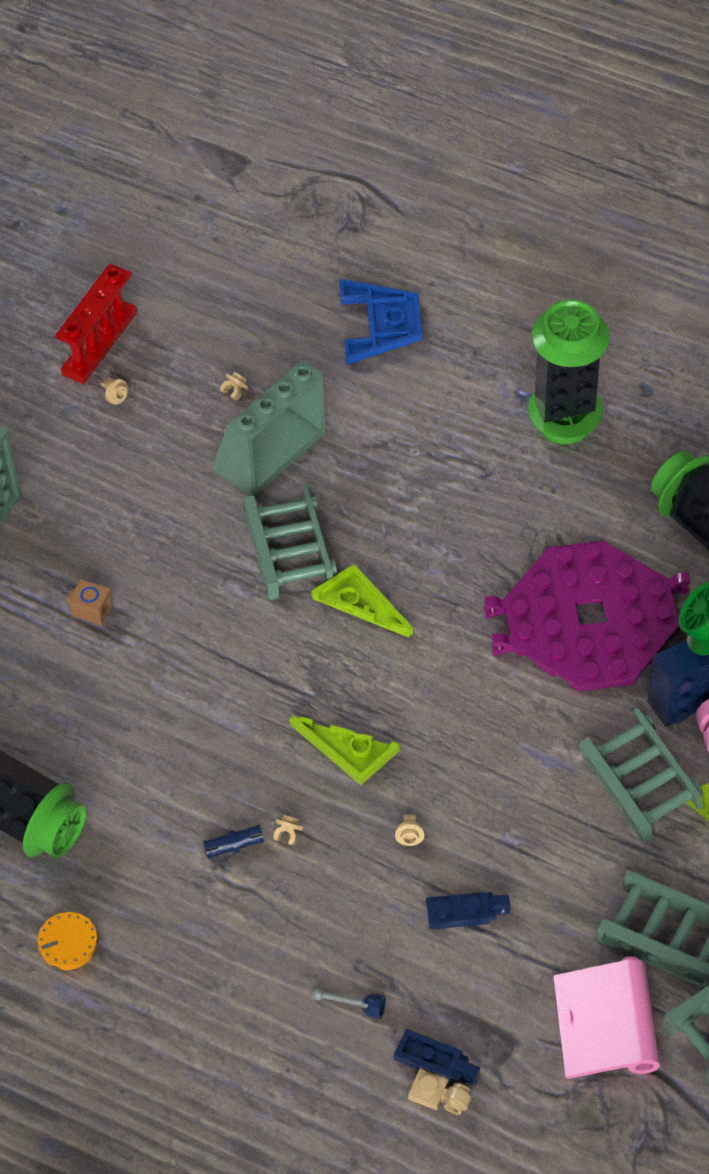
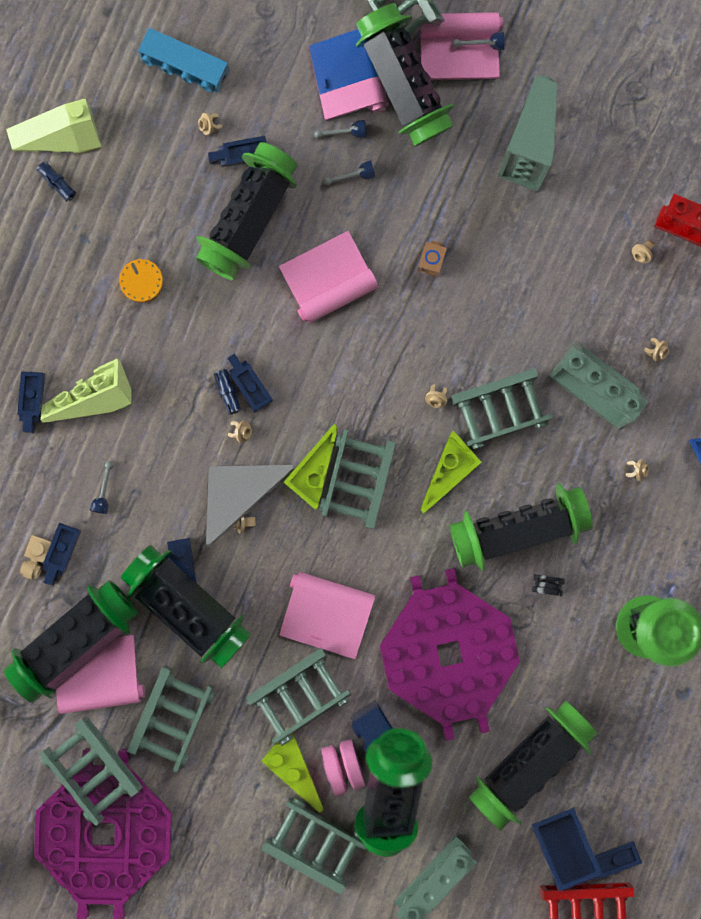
camera: 85 degrees right, 30 degrees up
(97, 718) = (328, 277): none -> bright pink door
(217, 998) = (99, 394): none -> yellowish green wedge
(217, 1086) = (30, 399): none -> dark blue hinge
(224, 815) = (249, 384): none -> dark blue hinge
(268, 608) = (435, 398): none -> tan plate
(367, 672) = (373, 494): none -> sand green fence
(370, 833) = (236, 492): none -> light grey tile
(377, 408) = (641, 470): none -> tan plate
(451, 559) = (522, 528): none -> black brick
(514, 504) = (548, 587): none -> black wheel
(517, 889) = (184, 606): none -> black brick
(536, 742) = (326, 614): none -> bright pink door
(559, 1032) = (70, 642): none -> black brick

